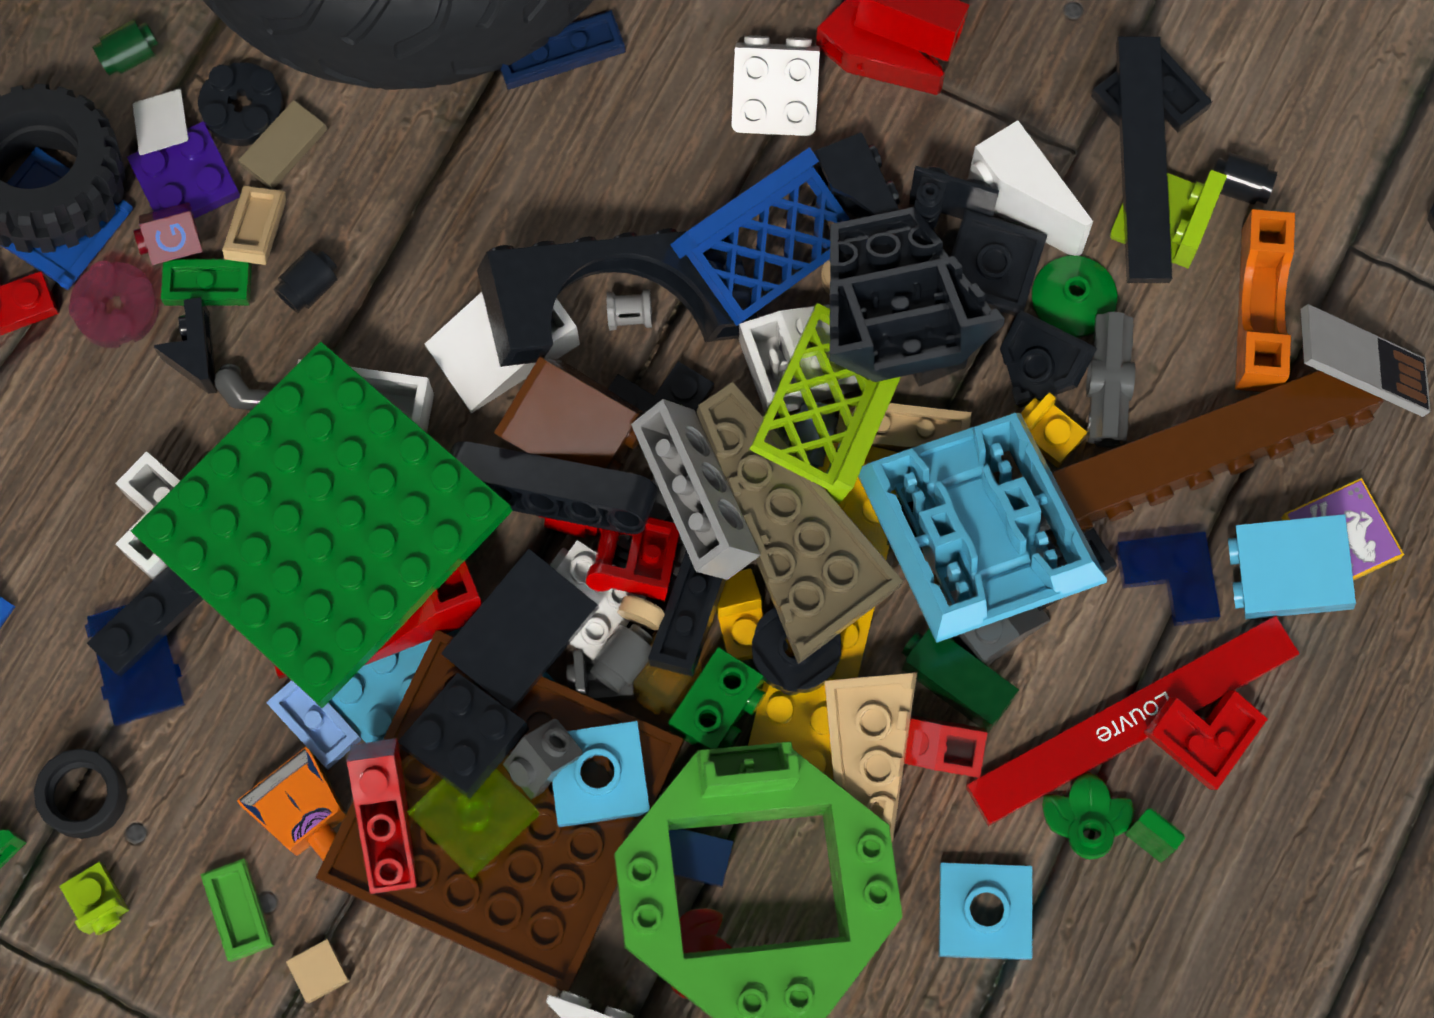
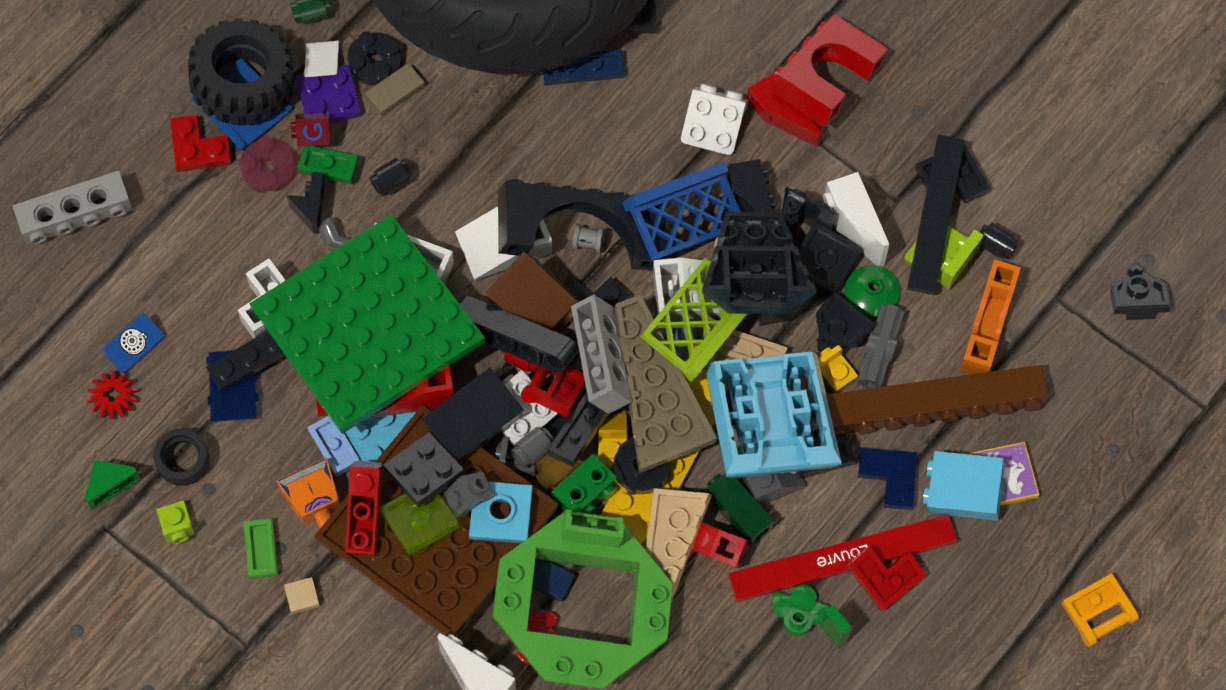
camera: 10 degrees right, 5 degrees down
(254, 225) = (366, 135): tan tile -> none
(641, 612) = (550, 421): tan tile -> none
(966, 938) = (727, 671): medium azure piece -> none
(1365, 360) = (1042, 368): light grey piece -> none

